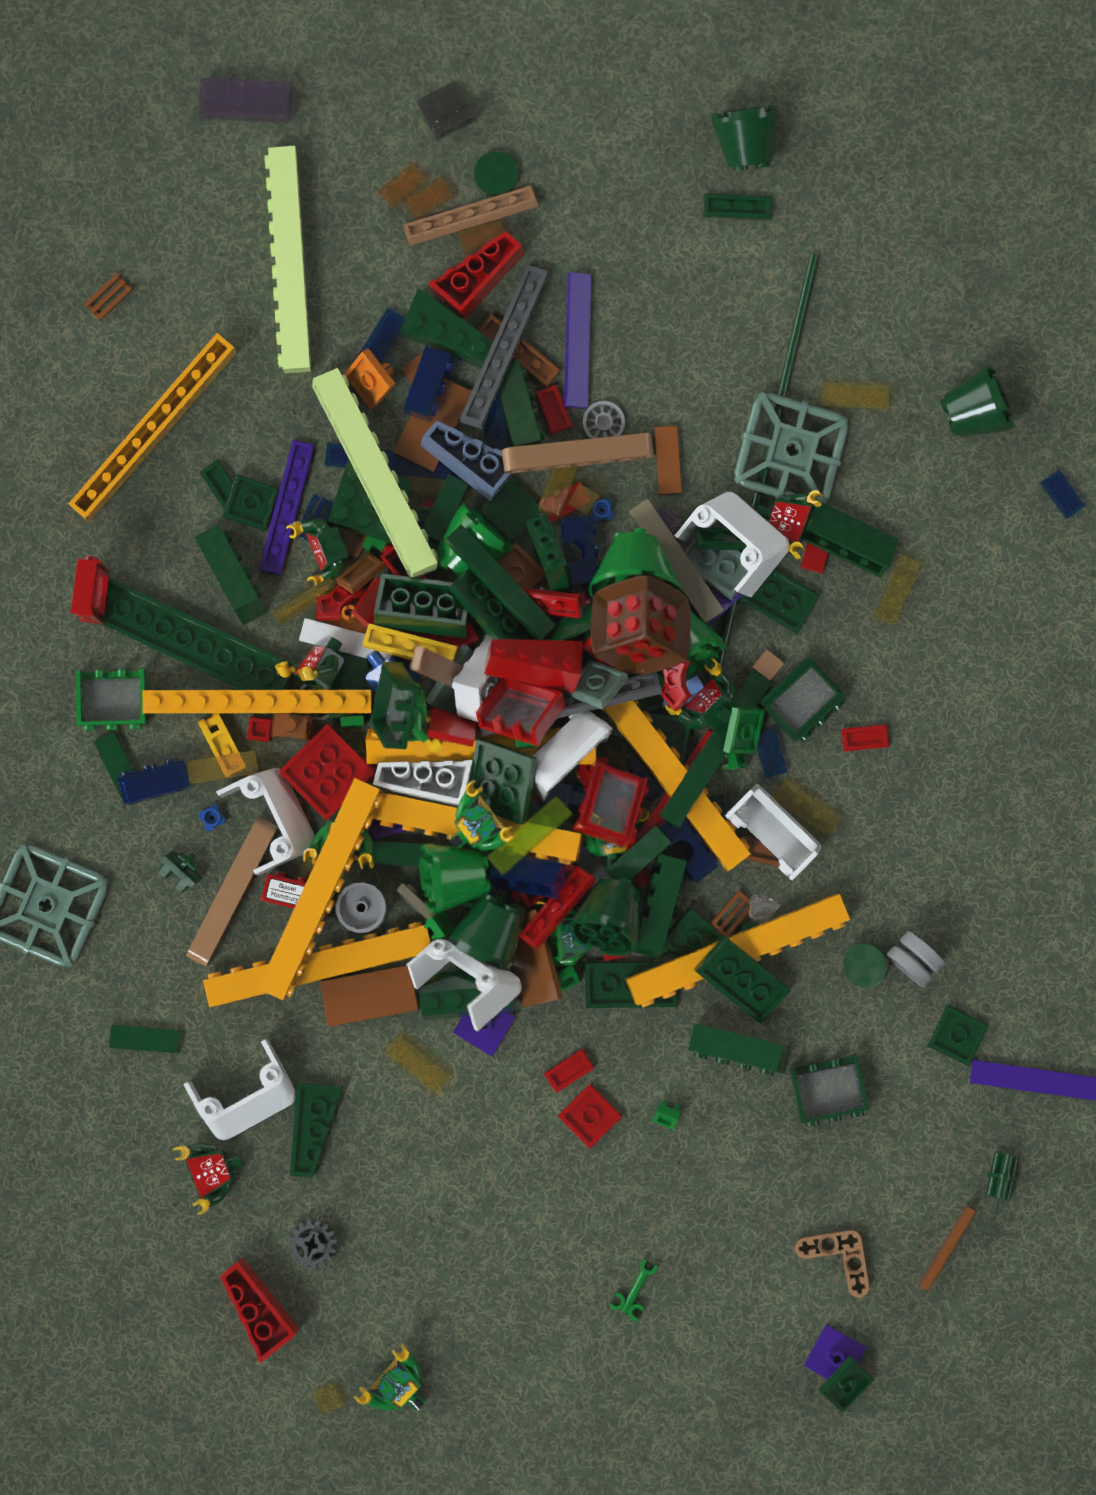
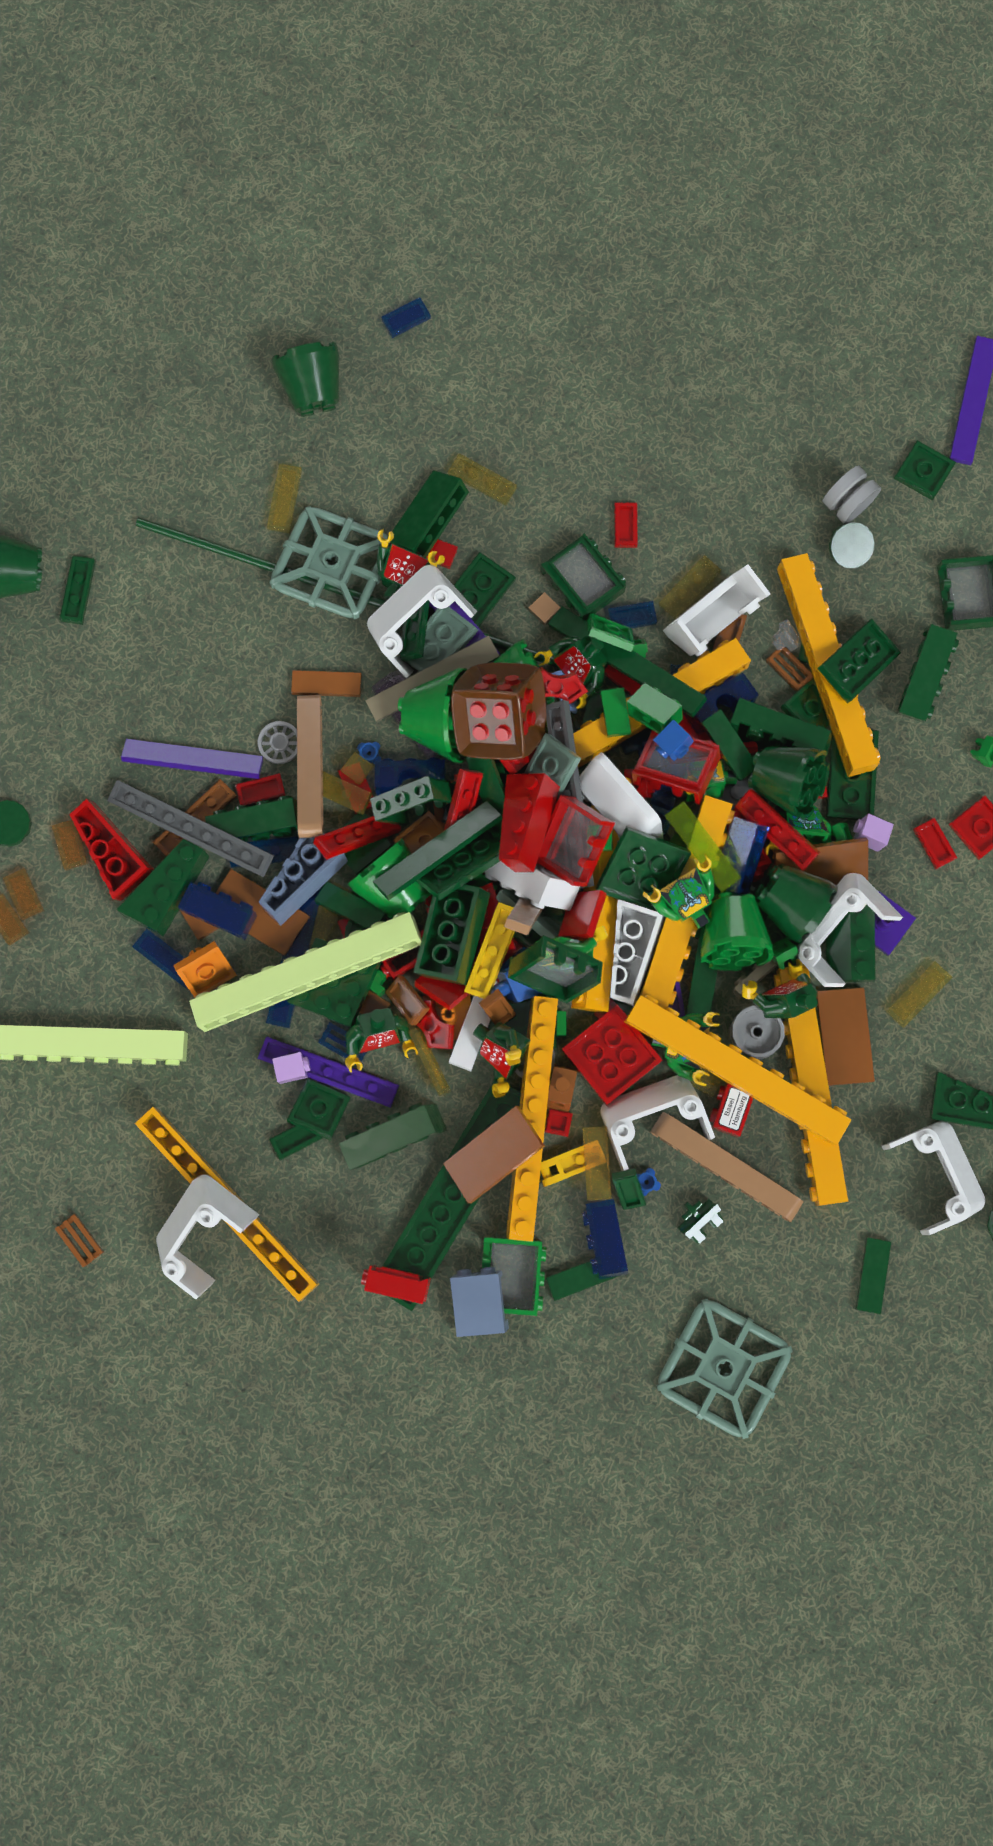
camera: 85 degrees left, 5 degrees down
(83, 669) = (478, 1302): none -> sand blue panel
(145, 410) = (208, 1204): none -> white windscreen
(201, 799) = (629, 1189): none -> dark green tile
(219, 668) = (493, 1154): none -> dark orange tile
(284, 471) = (291, 1067): none -> lavender brick
(357, 657) = (497, 1007): none -> dark orange tile
(391, 930) = (786, 999): none -> dark green torso
(470, 215) = (47, 853): medium nougat tile -> none
(509, 502) = (354, 836): none -> red tile
(571, 1006) = (875, 830): none -> lavender brick
(628, 797) = (673, 741): none -> blue brick
(659, 741) = (615, 712): none -> green tile
(662, 778) = (654, 708): none -> green brick

